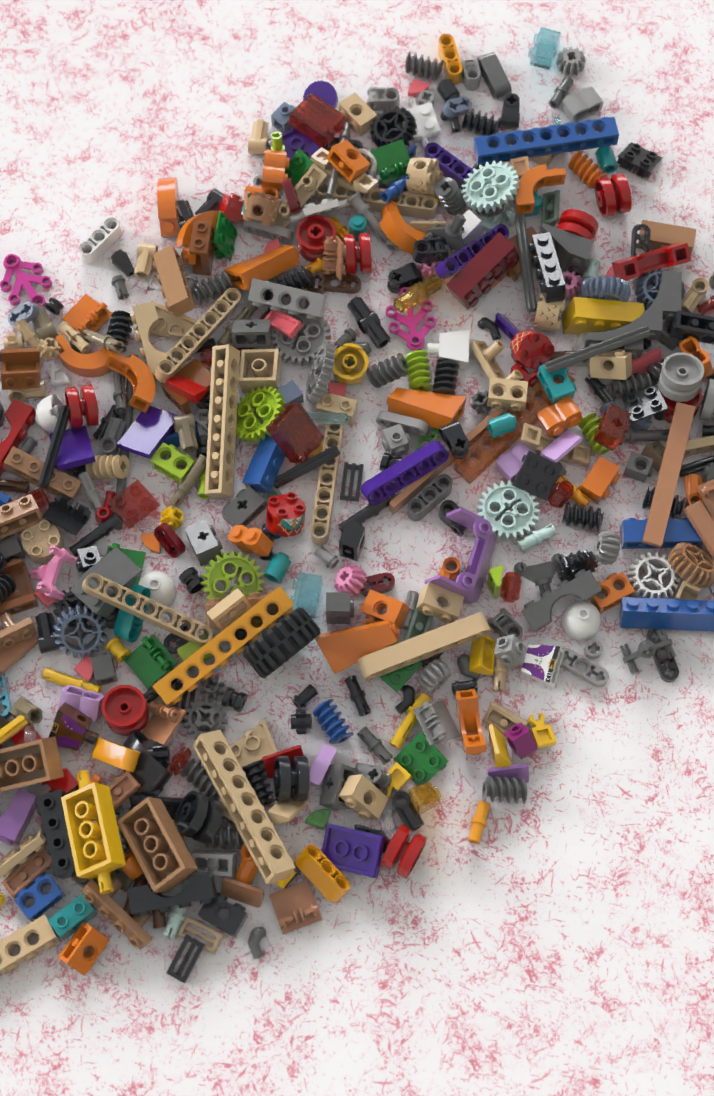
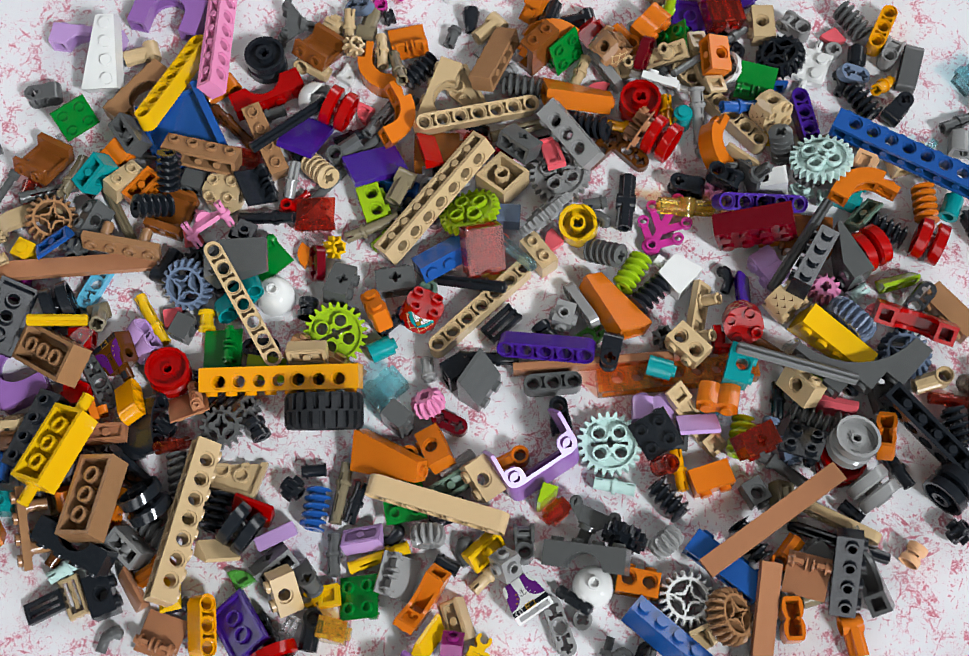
camera: 40 degrees right, 0 degrees up
(88, 762) = (108, 387): none -> dark grey beam
(102, 397) = (365, 113): none -> coral tile
(247, 245) = (580, 70): none -> tan pin
(341, 698) = (340, 497): none -> dark tan pin
(377, 536) = (478, 382): none -> dark grey slope
(386, 717) = (362, 539): none -> lavender slope
(486, 100) = (882, 85): none -> light orange pin
(511, 296) = (764, 264): none -> lavender brick
(575, 639) = (573, 600): none -> black axle
(584, 205) = (892, 232): none -> black piece
(612, 242) = (897, 282): none -> lime slope

